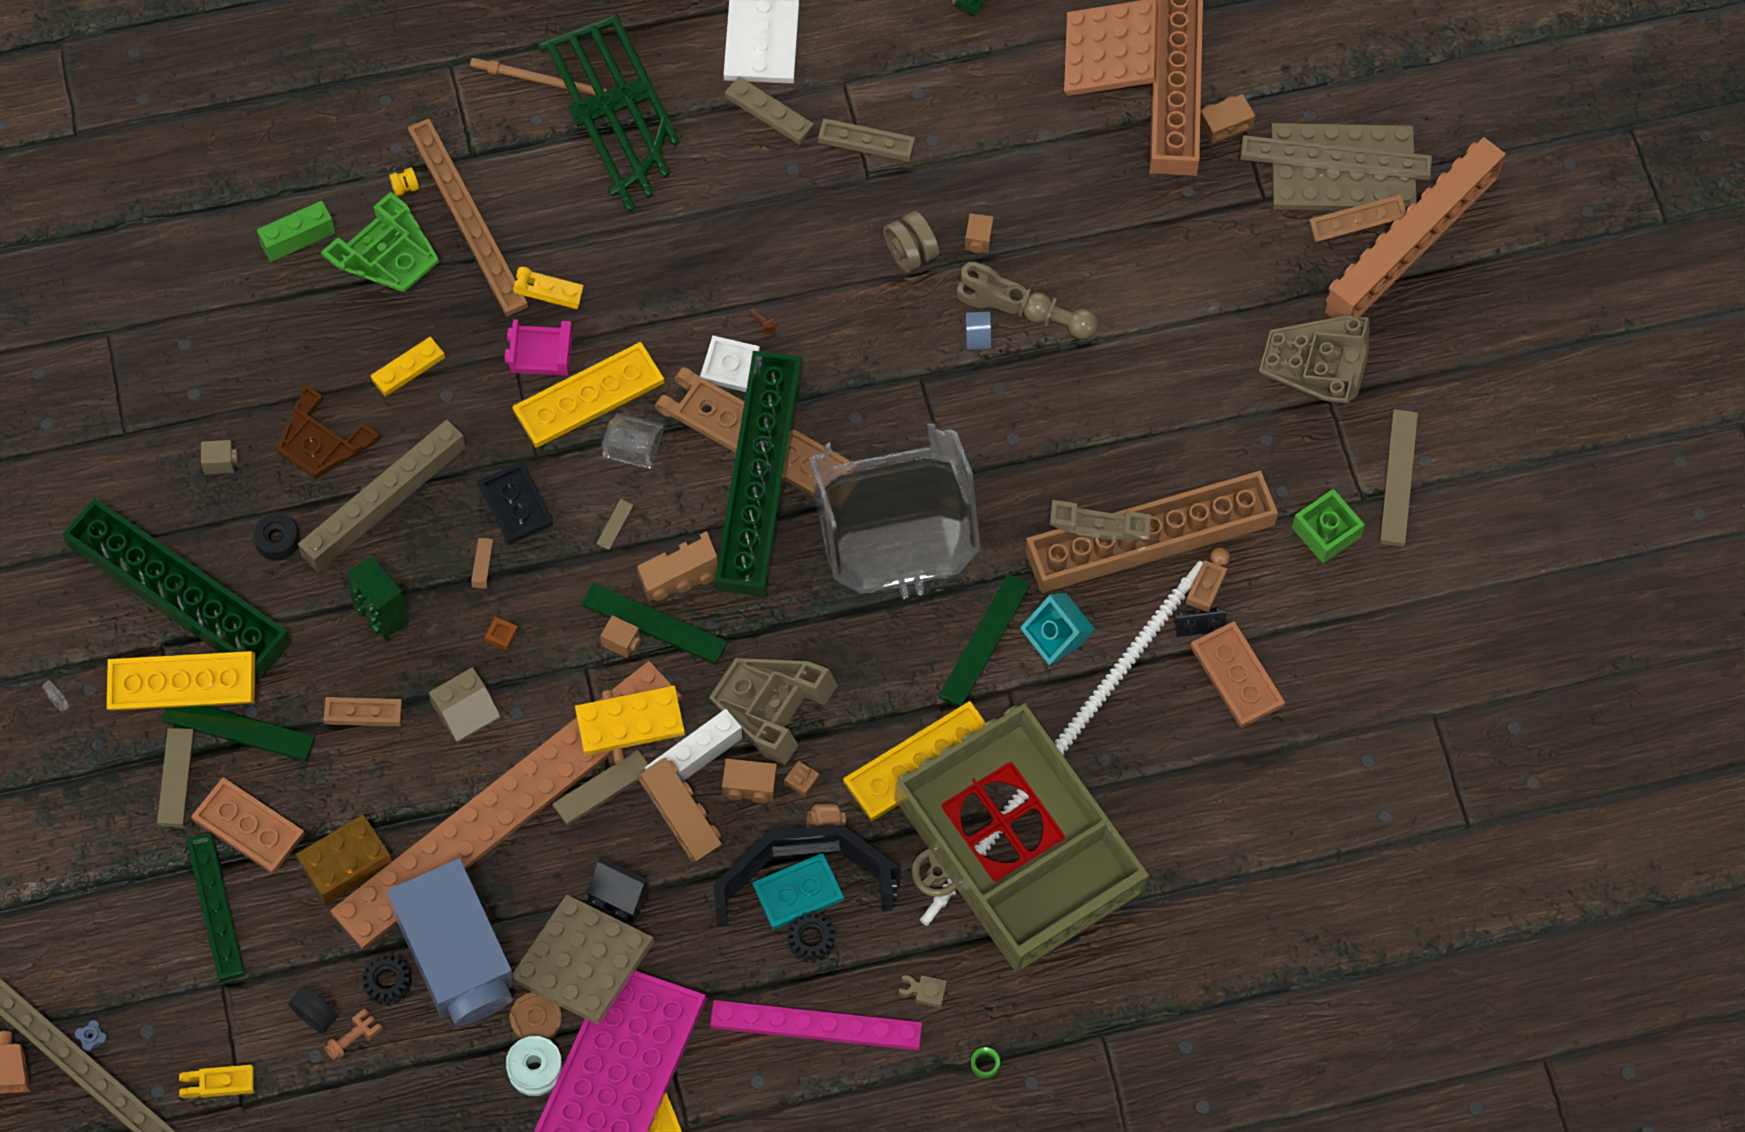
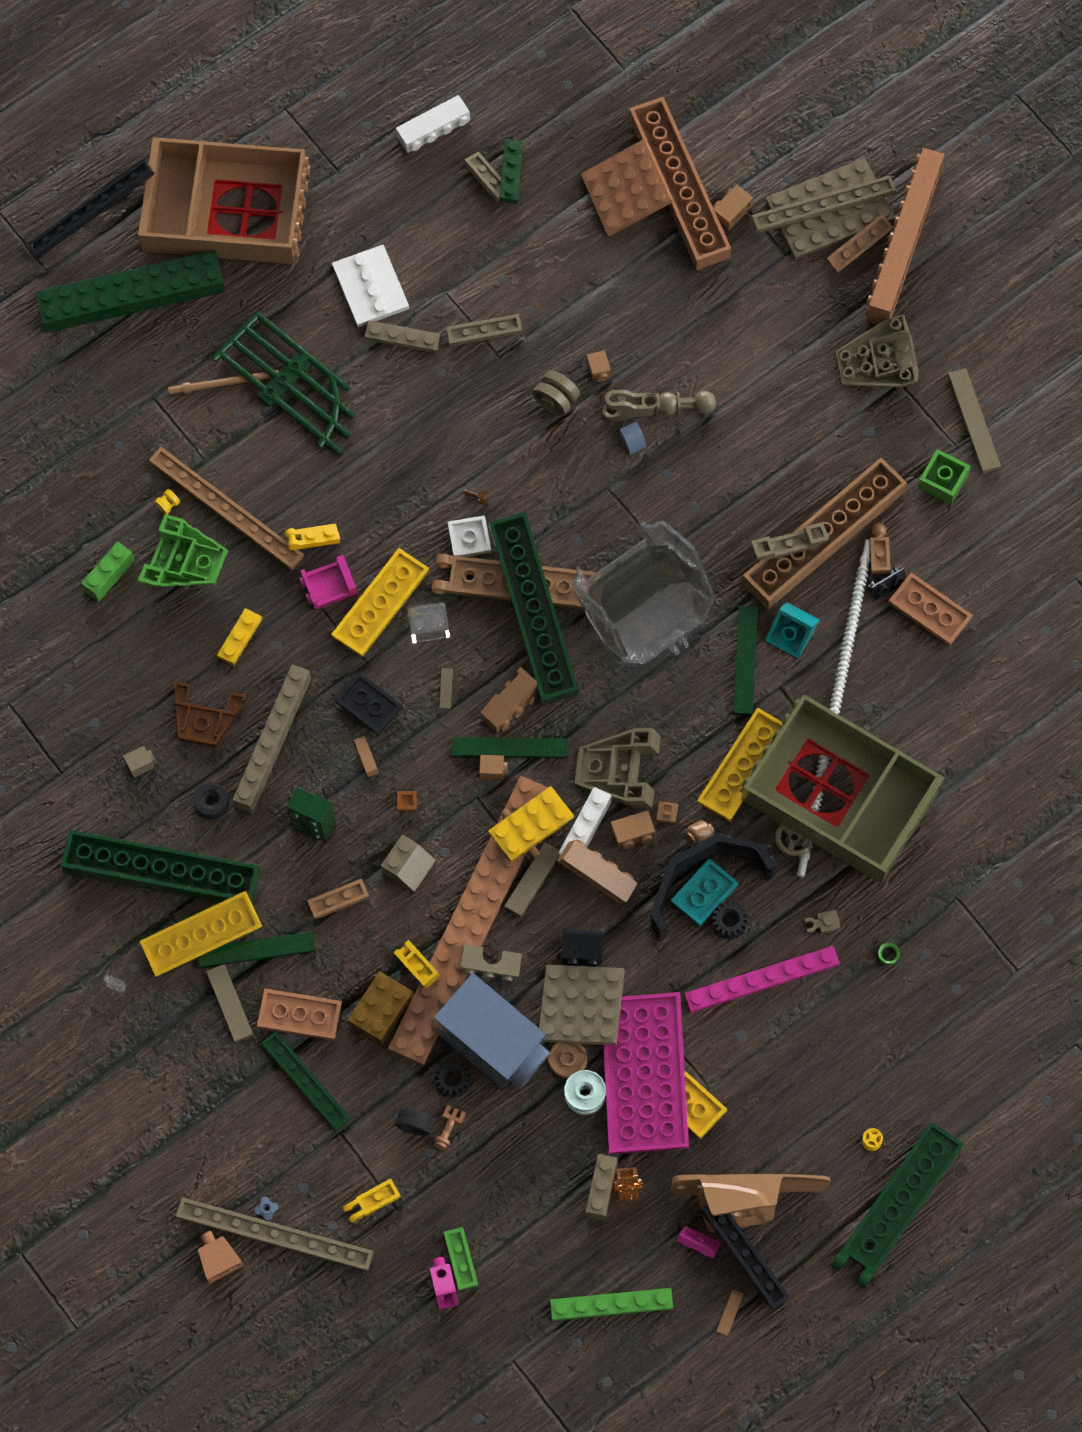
camera: 20 degrees left, 5 degrees up
(413, 826) = (417, 964): none -> yellow plate
(514, 876) = (472, 961): none -> dark tan arch

